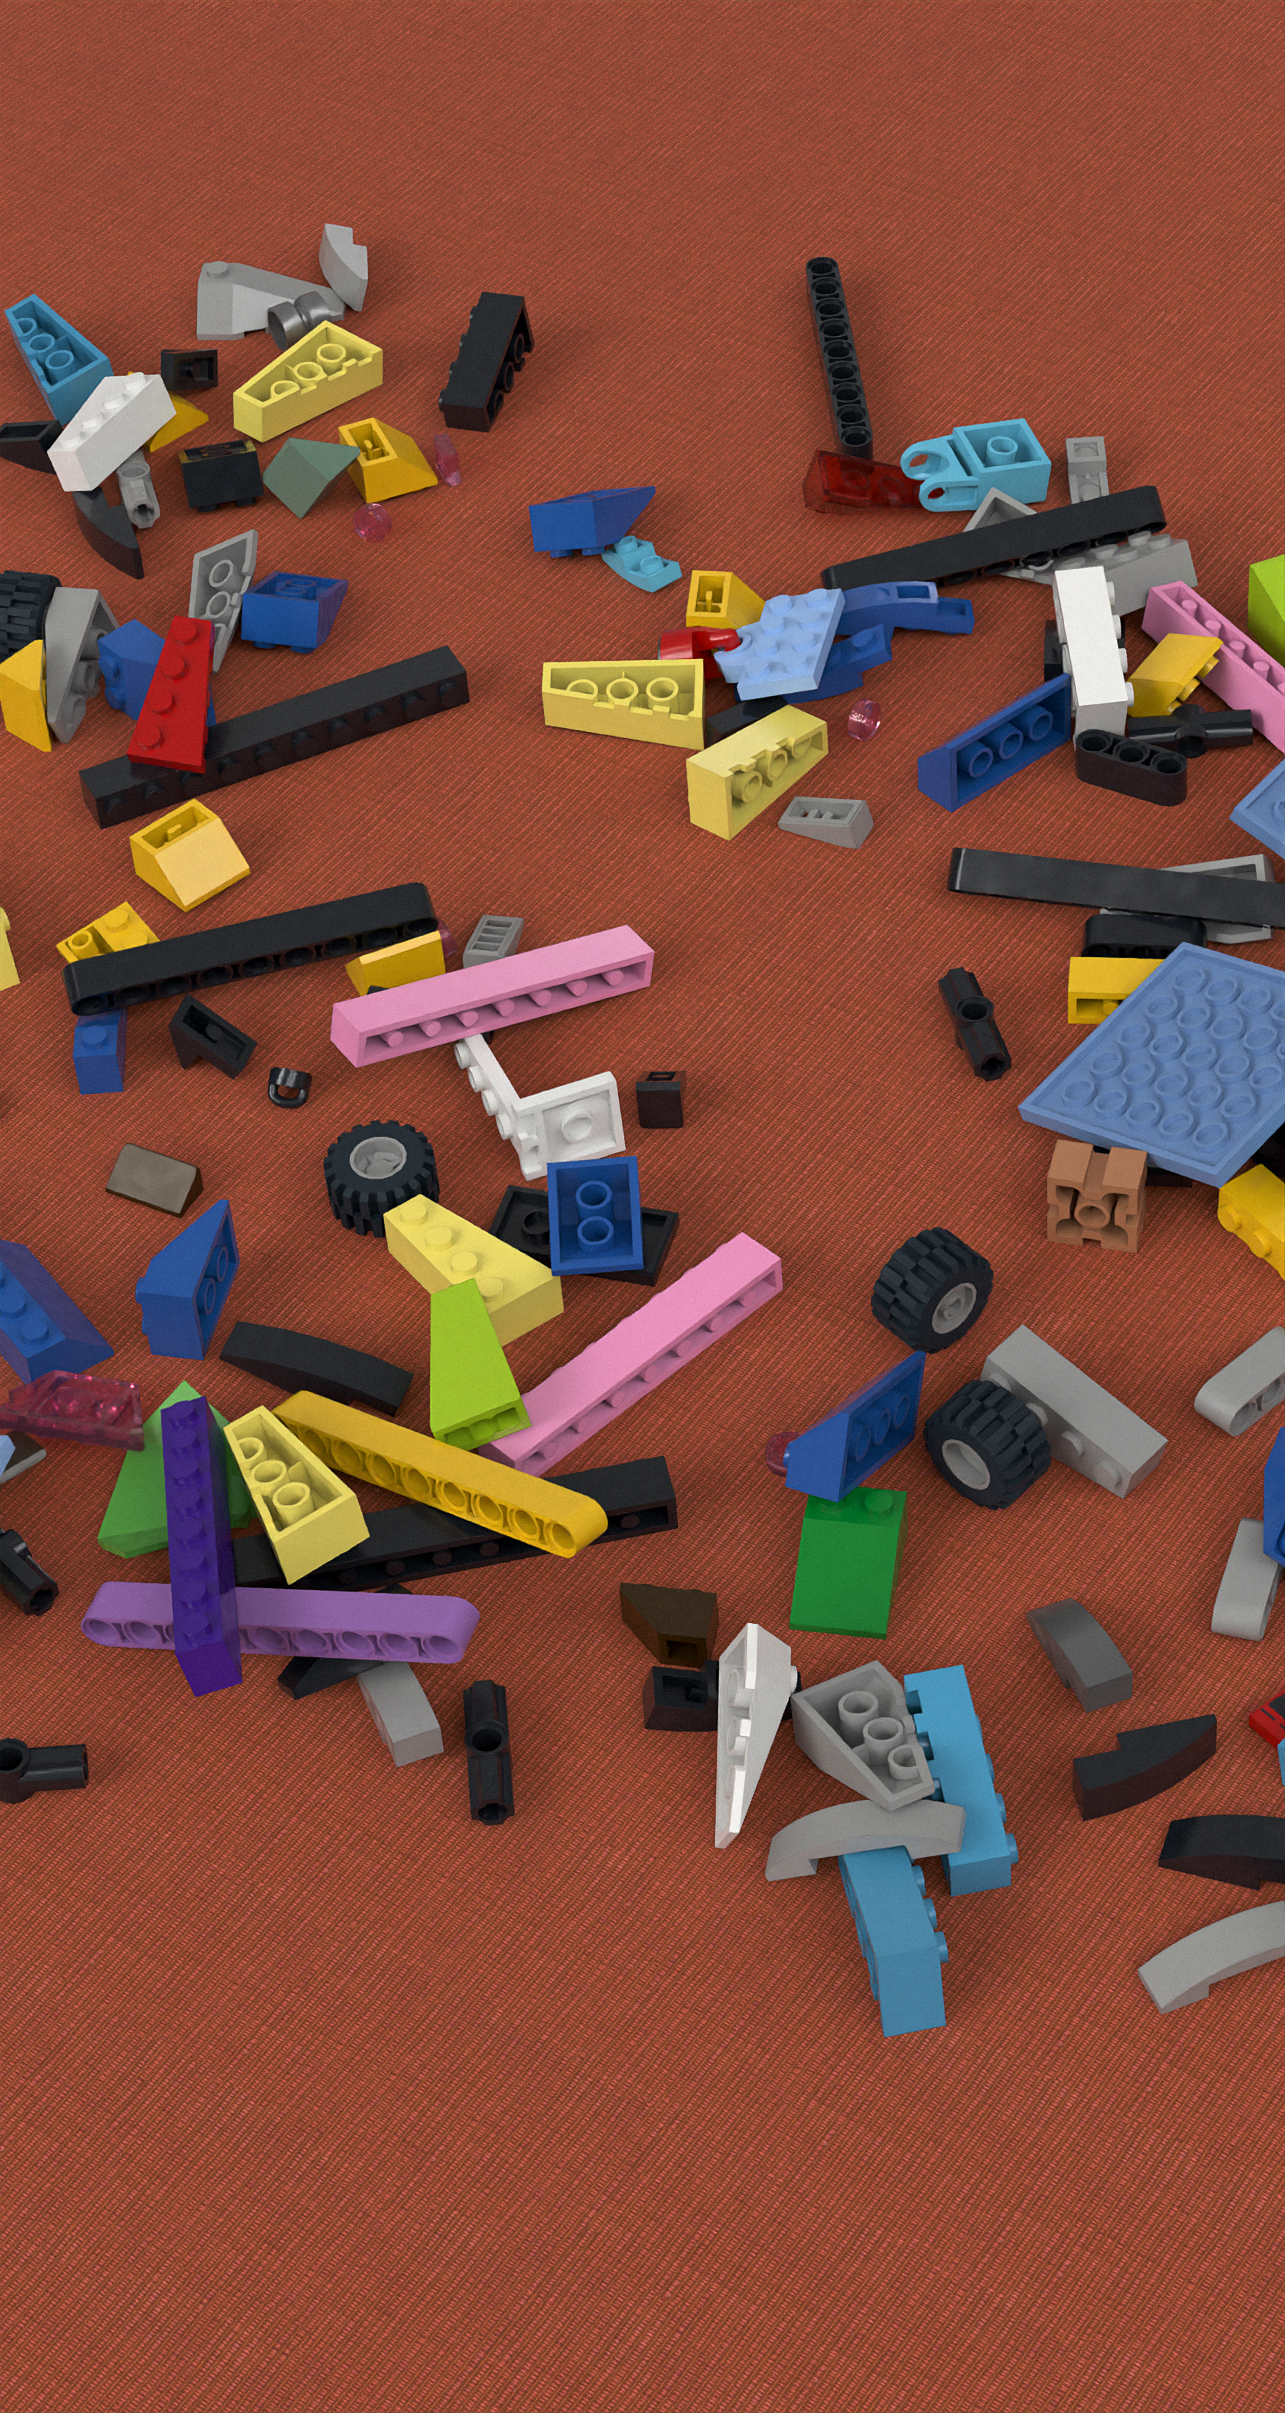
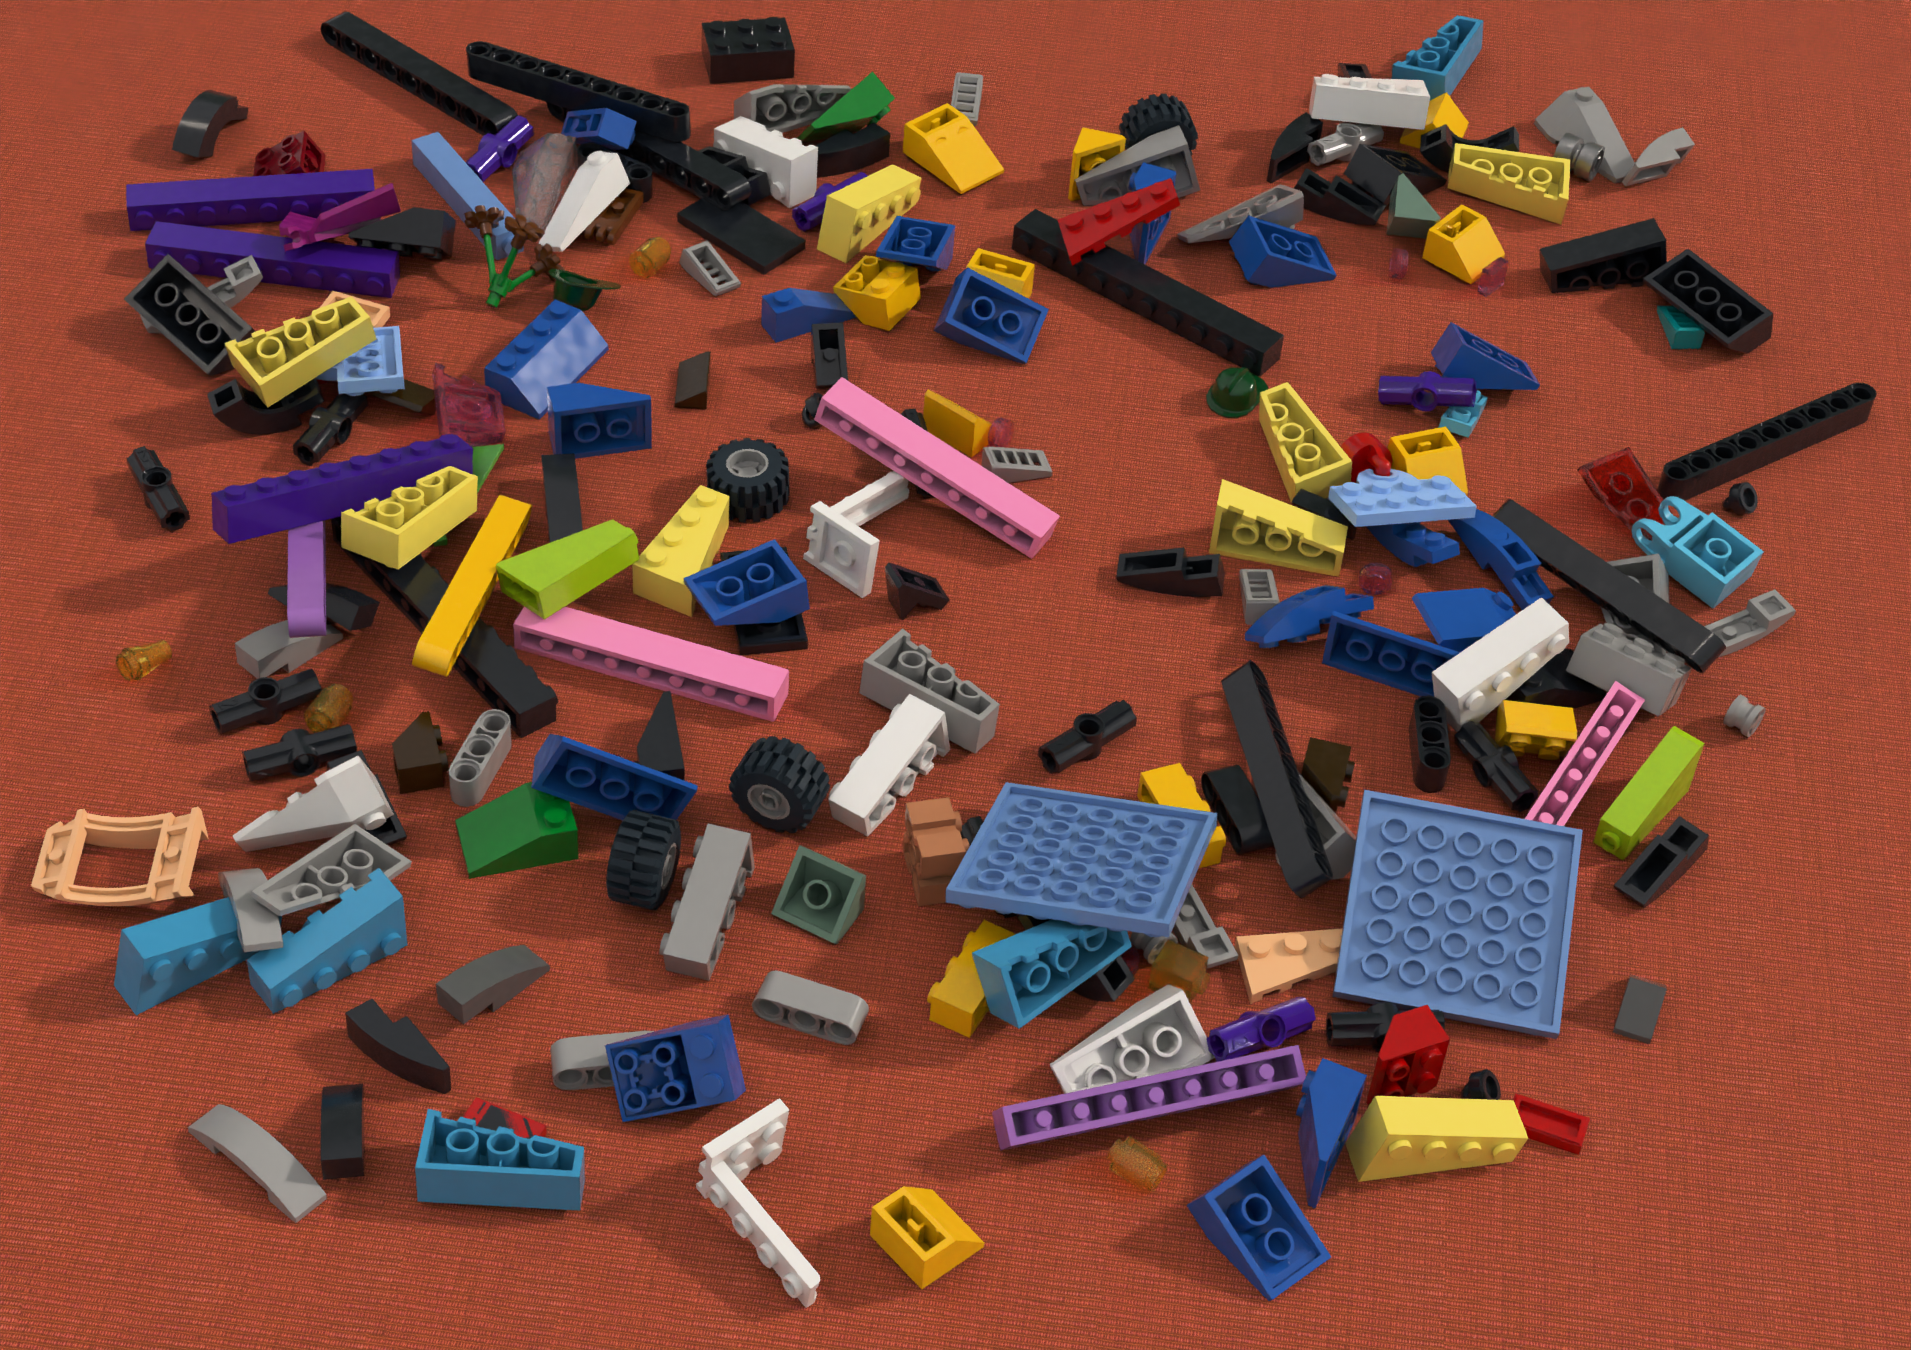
camera: 55 degrees right, 0 degrees up
(76, 890) = (918, 243): none -> blue slope
(189, 368) = (1476, 119): black slope -> none
(213, 411) = (1439, 144): none -> black arch
(222, 524) = (1338, 199): none -> black slope
(241, 874) = (990, 317): none -> blue slope
(249, 949) = (909, 339): black beam -> none
(333, 1869) = (140, 660): none -> clear yellow cone
(489, 727) = (1235, 392): none -> dark green piece
(541, 1692) = (329, 708): none -> clear yellow brick
(598, 1742) = (299, 752): none -> black piece
(607, 572) = (1444, 391): none -> dark purple piece
(612, 311) = (1712, 302): none -> black slope
(615, 357) = (1679, 329): none -> teal slope
(709, 1564) = (480, 757): none -> light grey beam
(724, 1899) = (172, 837): none -> light nougat wedge
(757, 872) = (1172, 572): none -> black slope
(782, 1389) = (660, 742): none -> black slope
(840, 1128) = (907, 669): none -> light grey wedge
(893, 791) = (1304, 613): none -> blue slope
(910, 413) = (1741, 499): none -> black tile
(933, 1186) = (890, 765): none -> white wedge
(998, 658) = (1463, 615): none -> blue slope
(1099, 1318) = (821, 895): none -> sand green slope
(1133, 847) = (1326, 769): none -> dark brown slope
(1216, 532) = (1744, 715): none -> light grey wheel

